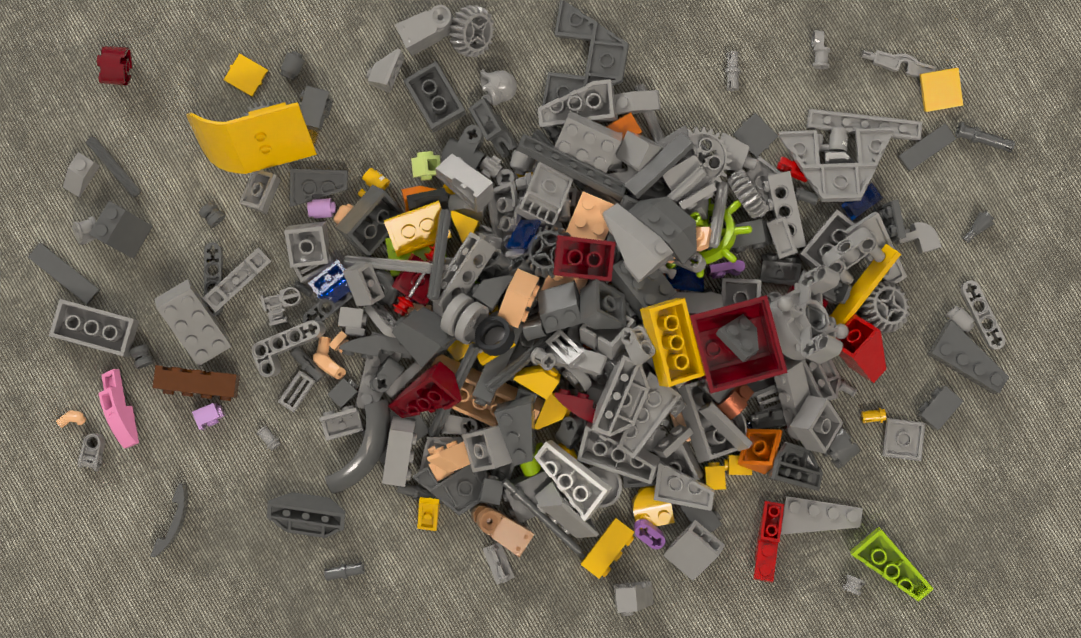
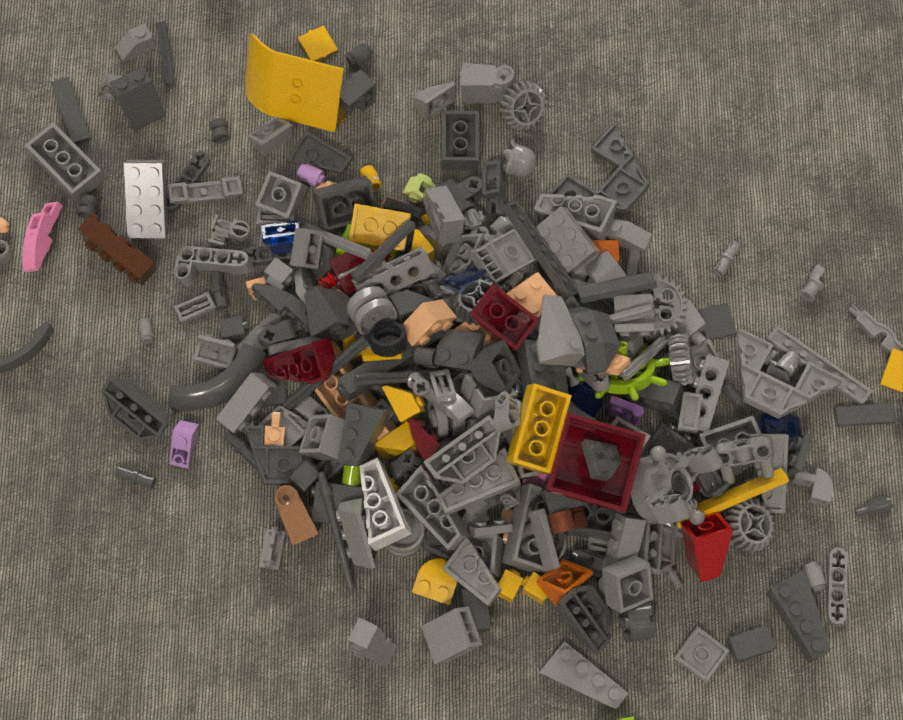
camera: 25 degrees right, 15 degrees down
(208, 415) = (109, 283): lavender brick -> none
(301, 287) = (254, 229): dark grey piece -> none
(324, 361) = (233, 295): light nougat arm -> none
(366, 518) = (183, 443): none -> lavender slope
(428, 513) = (239, 469): yellow slope -> none
(451, 458) = (287, 429): light nougat slope -> none
(608, 548) = (376, 591): yellow brick -> none
(646, 537) = (424, 599): medium lavender beam -> none
(768, 541) = (524, 671): red slope -> none
(788, 165) = (734, 367): red plate -> none
(873, 416) = (685, 616): yellow pin -> none

